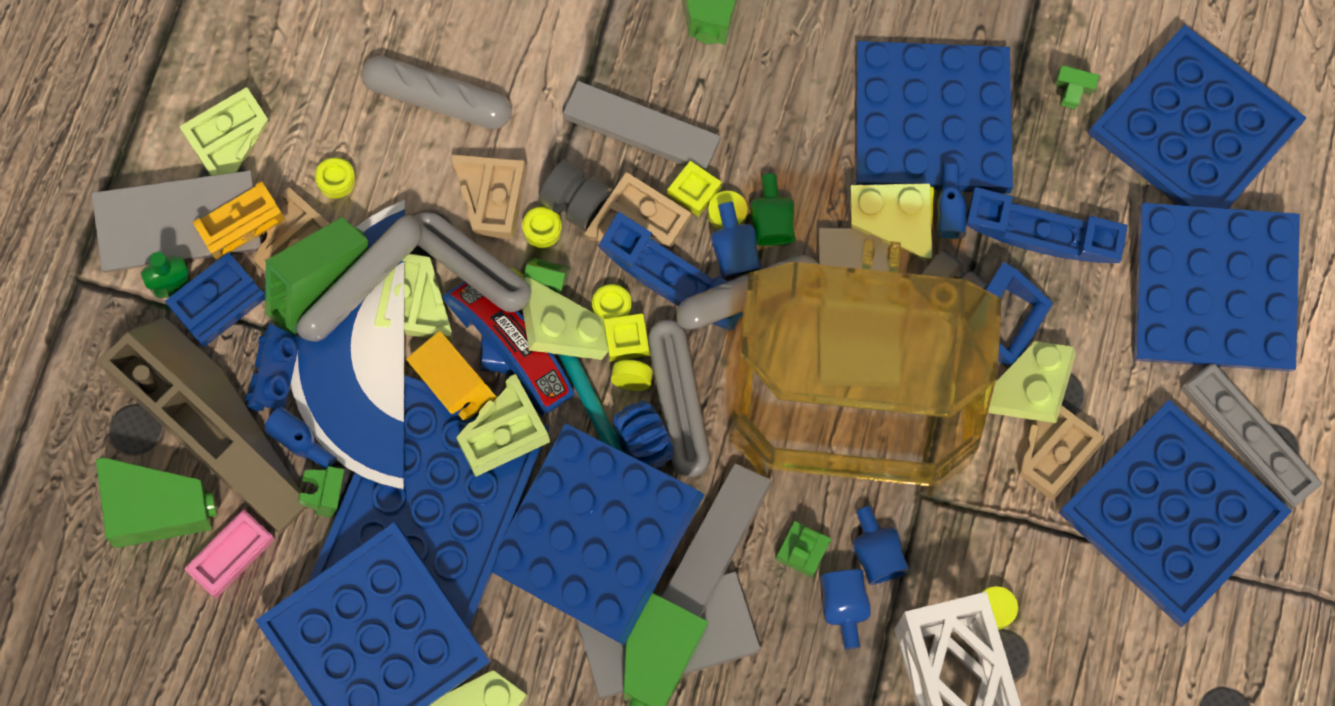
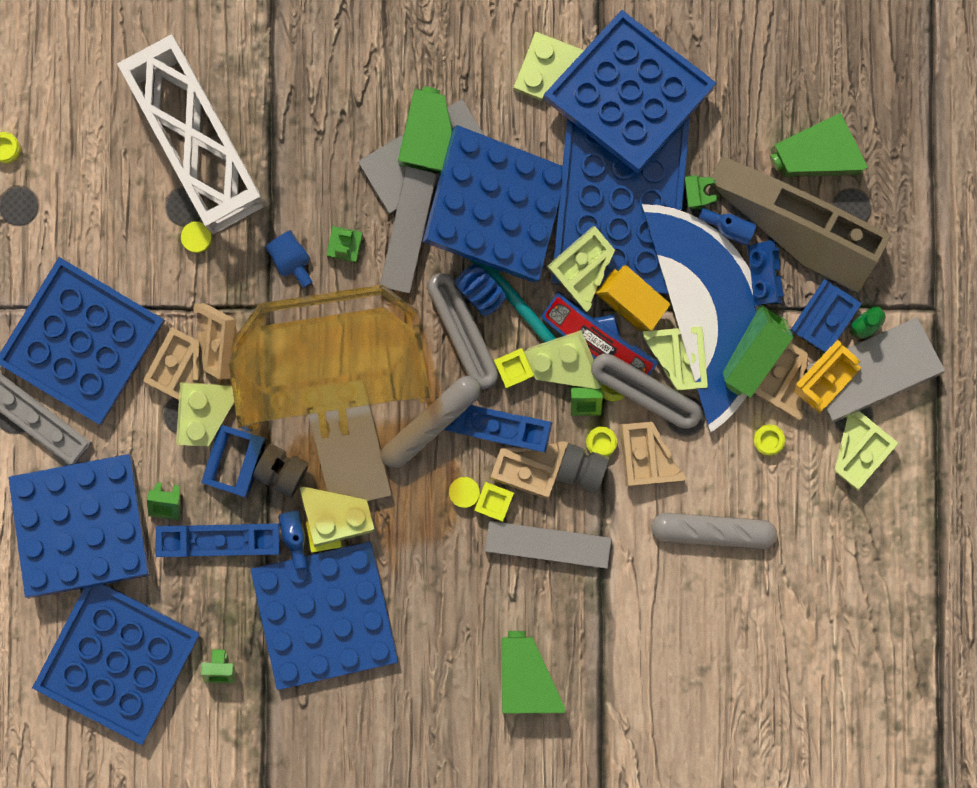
camera: 170 degrees right, 15 degrees up
(229, 554) = (752, 133): bright pink tile -> none
(360, 279) = (721, 354): light grey piece -> none
(611, 302) = (532, 393): neon yellow tile -> none
(631, 375) = (501, 339): neon yellow tile -> none
(735, 244) = (451, 462): blue piece -> none
(773, 215) = (429, 498): green piece -> none
(845, 603) = (305, 212): blue piece -> none
(998, 464) = (215, 340): none -> tan wing
(1103, 286) = (164, 504): none -> bright green tile

